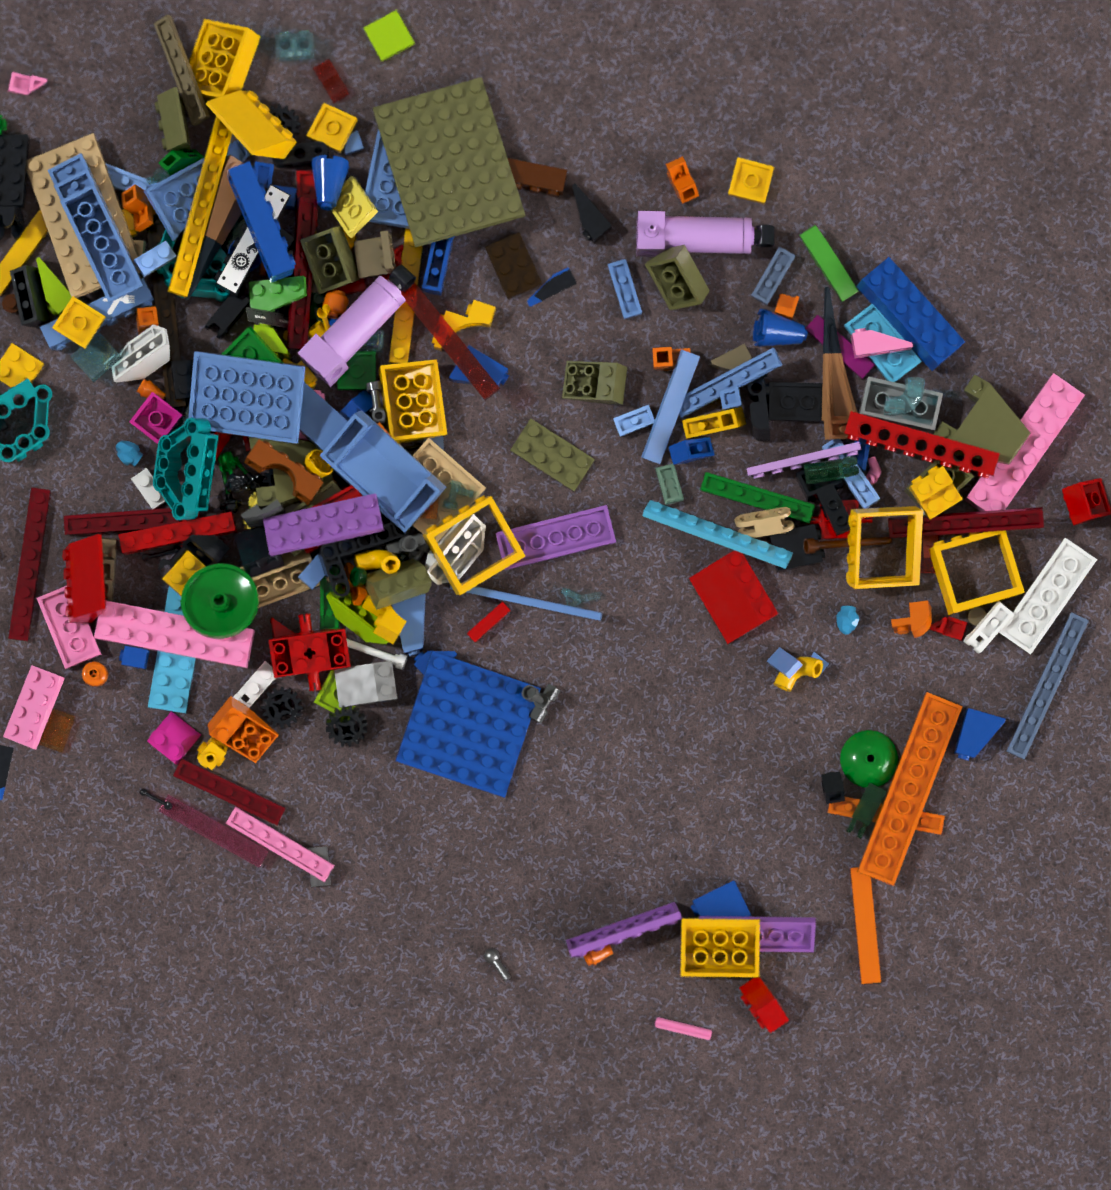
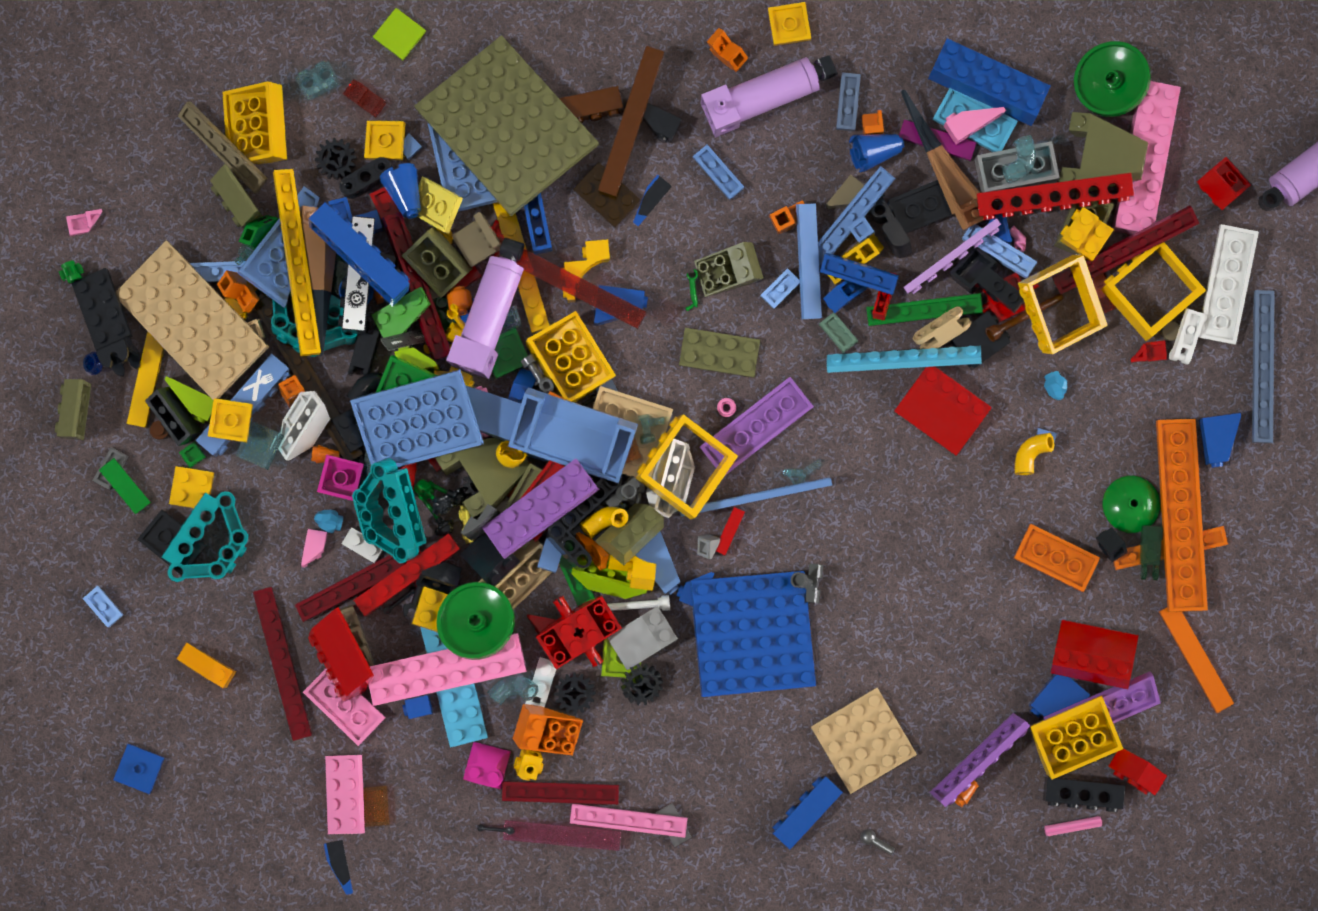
camera: 25 degrees left, 0 degrees up
(31, 339) = (192, 454): none -> green tile
(95, 227) = (207, 326): medium blue slope -> none
(101, 676) = (395, 738): orange head -> none
(104, 470) = (314, 546): none -> bright pink slope
(154, 258) = (275, 331): light blue plate -> none
(215, 343) = (365, 385): none -> black cylinder
(228, 676) = (513, 686): none -> clear light blue cylinder
(253, 124) = (311, 167): yellow slope -> none
(265, 457) = (505, 477): dark orange arch -> none
(358, 576) = (593, 542): dark green tile -> none
(446, 908) = (807, 812): none -> blue brick
(462, 626) = (707, 545): none -> light grey slope
(526, 866) = (863, 740): none -> tan plate
(541, 512) = (731, 403): none -> bright pink plate
(552, 388) = (692, 291): none -> green piece
(564, 207) = (631, 121): none -> reddish brown tile
(677, 278) = (763, 141): olive slope -> none
(711, 438) = (859, 273): none -> blue plate
(726, 468) = (881, 305): none -> red piece
(734, 1014) = (1114, 792): none -> black brick
(771, 879) = (1094, 654): none -> red slope
(777, 777) = (1056, 558): none -> orange plate
(784, 663) = (1017, 450): medium blue tile -> none
(828, 263) = (894, 68): bright green slope -> none
(830, 470) = (981, 255): clear green hinge -> none
(917, 623) = (1121, 360): orange brick -> none
(1025, 360) = (1112, 78): none -> green dish

